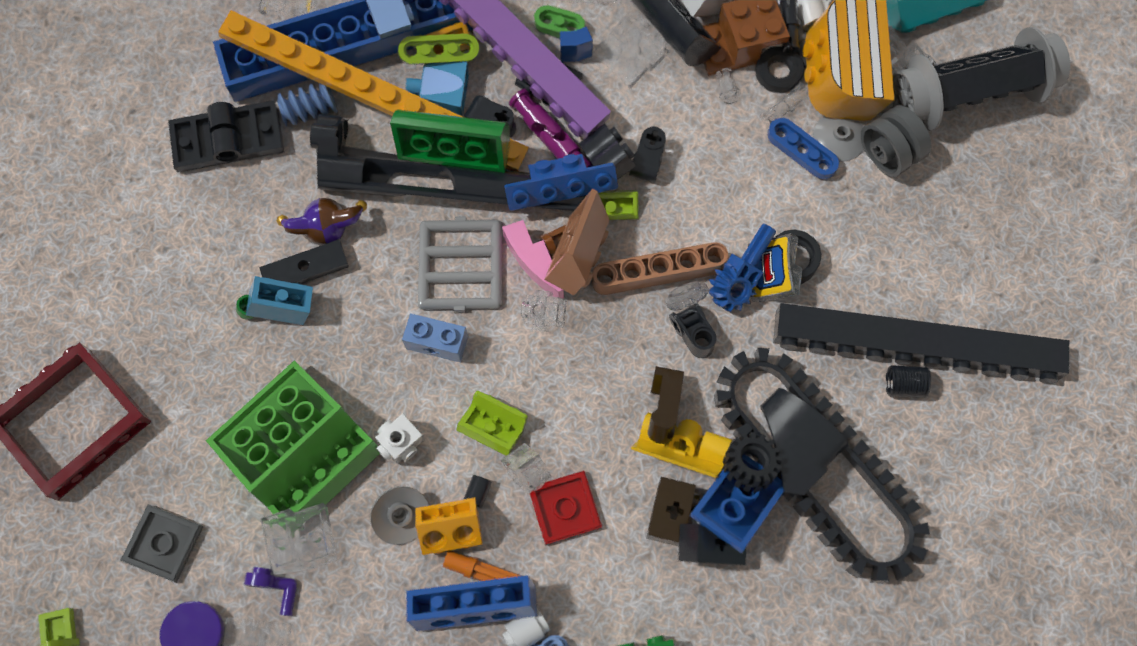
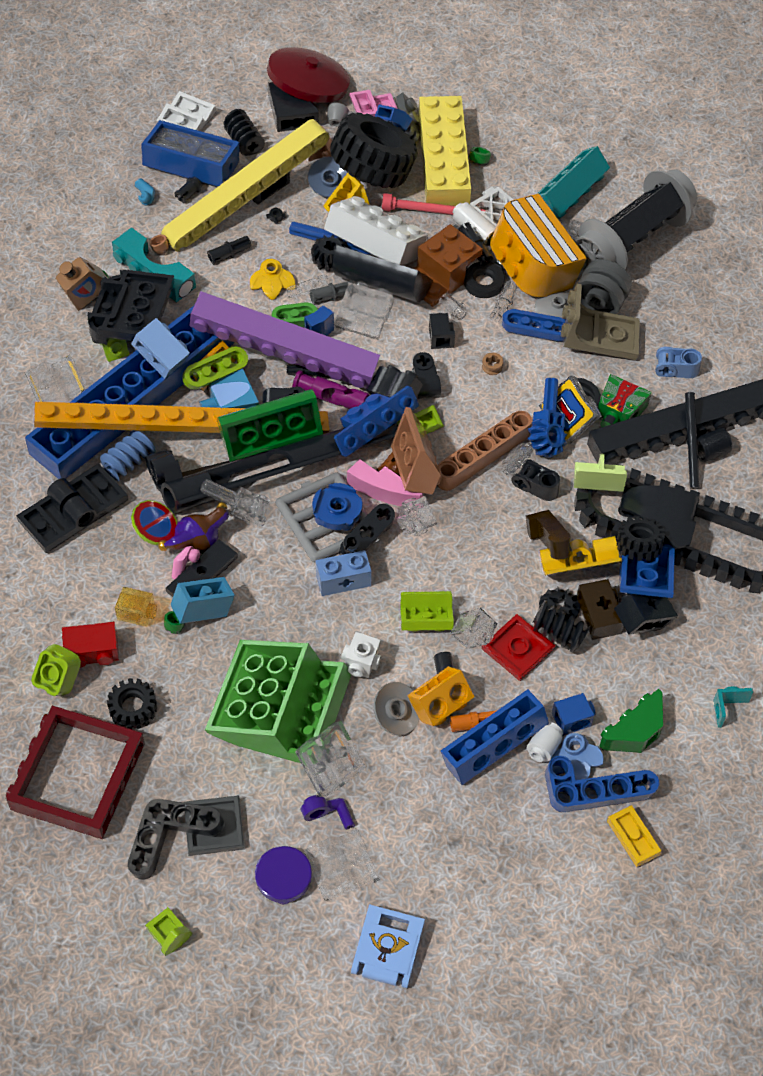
camera: 30 degrees left, 15 degrees down
(105, 306) = (56, 670): none -> lime piece
(109, 520) = (160, 826): none -> black beam
(148, 364) = (125, 691): none -> black tyre
(156, 292) = (92, 642): none -> red brick
(220, 273) = (135, 606): none -> clear yellow brick
(288, 190) = (153, 522): none -> piece
(296, 243) = (180, 561): none -> bright pink arm
(382, 211) = (243, 502): none -> clear connector
(467, 308) = (370, 522): none -> black beam
(471, 277) = (337, 519): none -> blue plate
(573, 615) = (573, 713): none -> blue brick
(610, 11) = (328, 292): none -> dark grey axle
(614, 512) = (559, 626): none -> black piece
(632, 497) = (570, 605): none -> black gear
(696, 109) = (441, 331): none -> black brick
(730, 163) = (487, 359): none -> medium nougat bush
(757, 362) = (599, 476): none -> yellowish green panel
(838, 283) = (622, 401): none -> torso
(865, 187) = (598, 330): none -> dark tan bracket
(886, 367) = (692, 440): none -> black bar
(928, 263) = (680, 362): none -> medium blue piece

